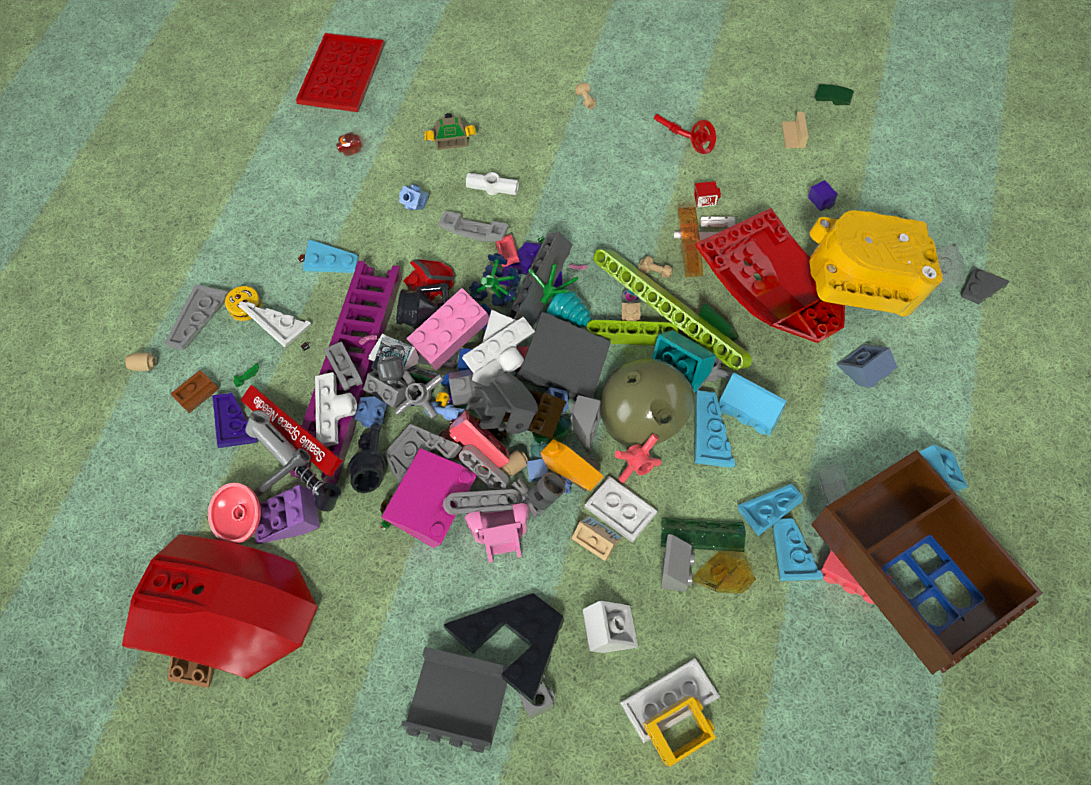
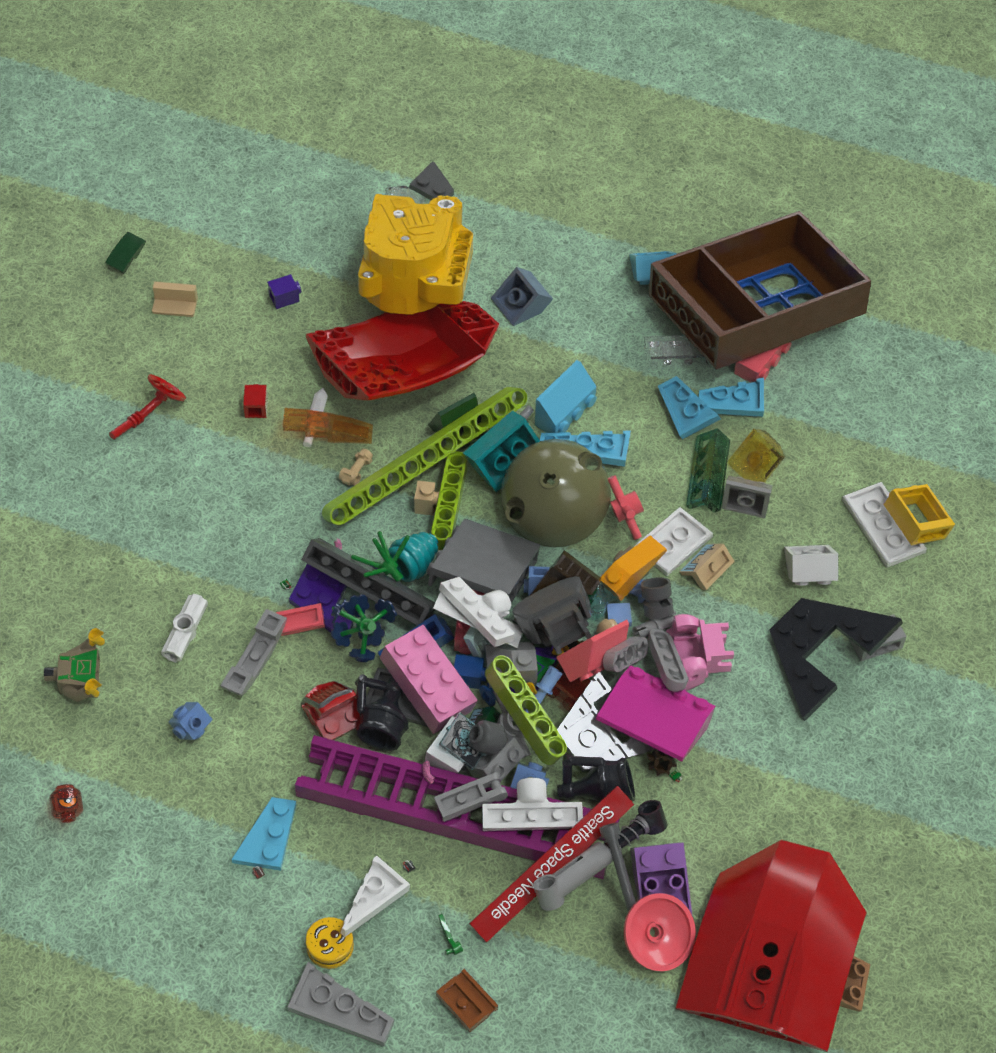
camera: 90 degrees left, 5 degrees down
(230, 422) = (524, 952): dark purple wing -> none
(405, 394) = (525, 721): none -> lime beam
(457, 700) = (885, 711): dark grey panel -> none
(584, 89) = (37, 511): tan bar -> none
(585, 419) = (579, 545): light grey slope -> none
(629, 297) = (394, 500): tile -> none
(717, 221) = (297, 394): white axle -> none

